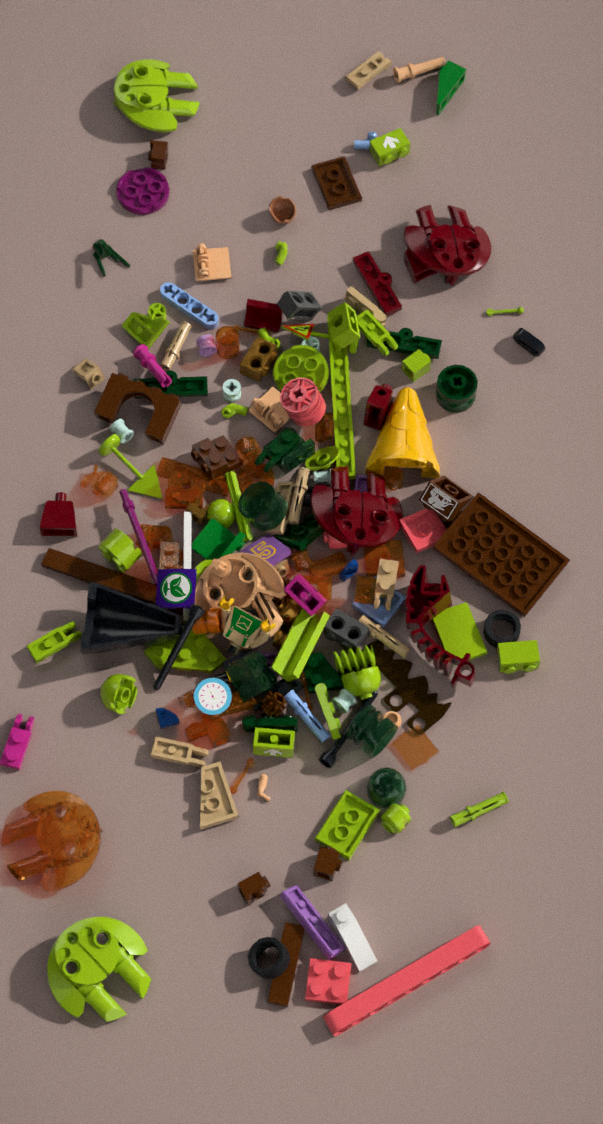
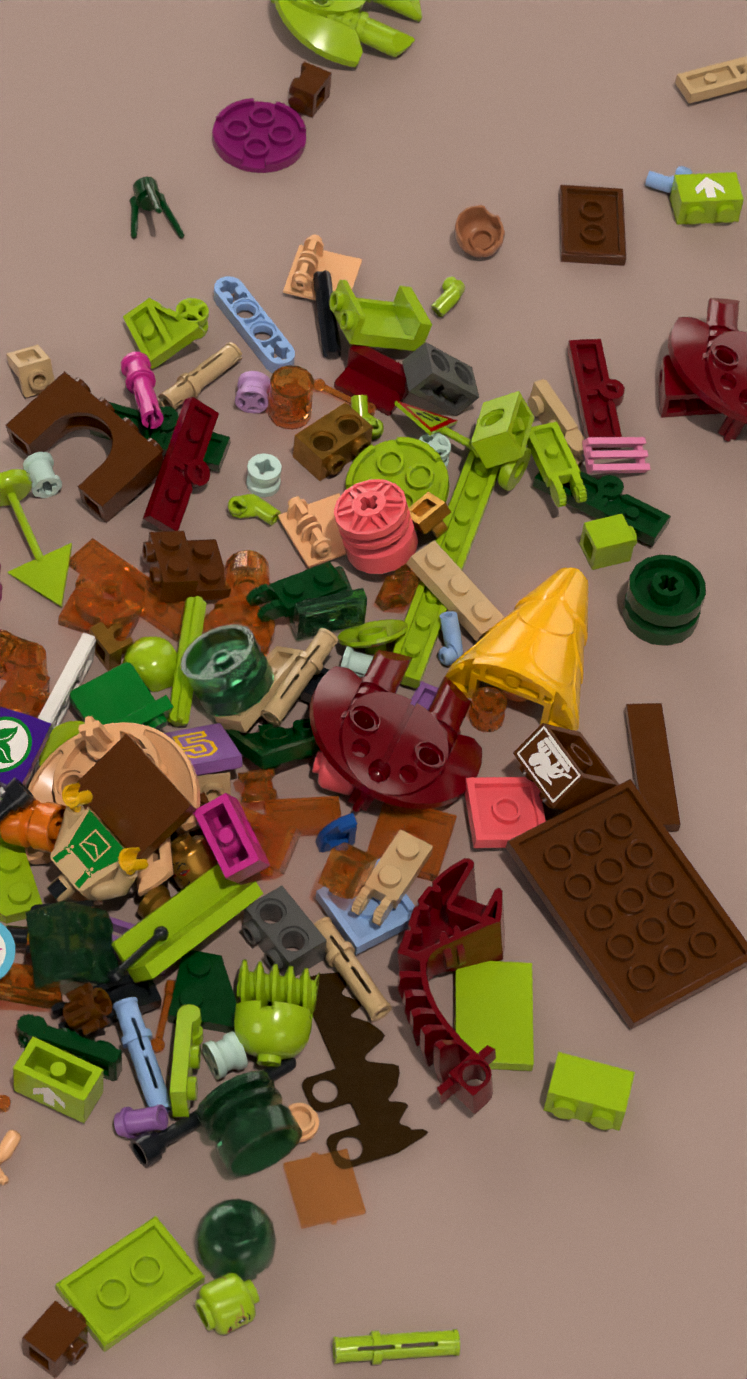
camera: 15 degrees right, 10 degrees down
(191, 401) = (182, 465): none -> dark red hinge
(224, 286) = (327, 320): none -> black axle
(251, 591) = (135, 797): none -> reddish brown tile
(255, 282) = (381, 323): none -> lime panel
(279, 681) = (160, 934): none -> black hinge
(319, 747) = (130, 1121): none -> medium lavender pin
(325, 384) = (429, 514): none -> pearl gold tile
(353, 421) = (454, 589): none -> tan plate
(363, 453) = (452, 638): none -> light blue arm
(381, 399) = (511, 576): dark red torso -> none
(412, 310) = (615, 442): none -> bright pink tile
(482, 476) = (652, 761): none -> reddish brown tile
(501, 615) = (582, 1007): black tyre -> none

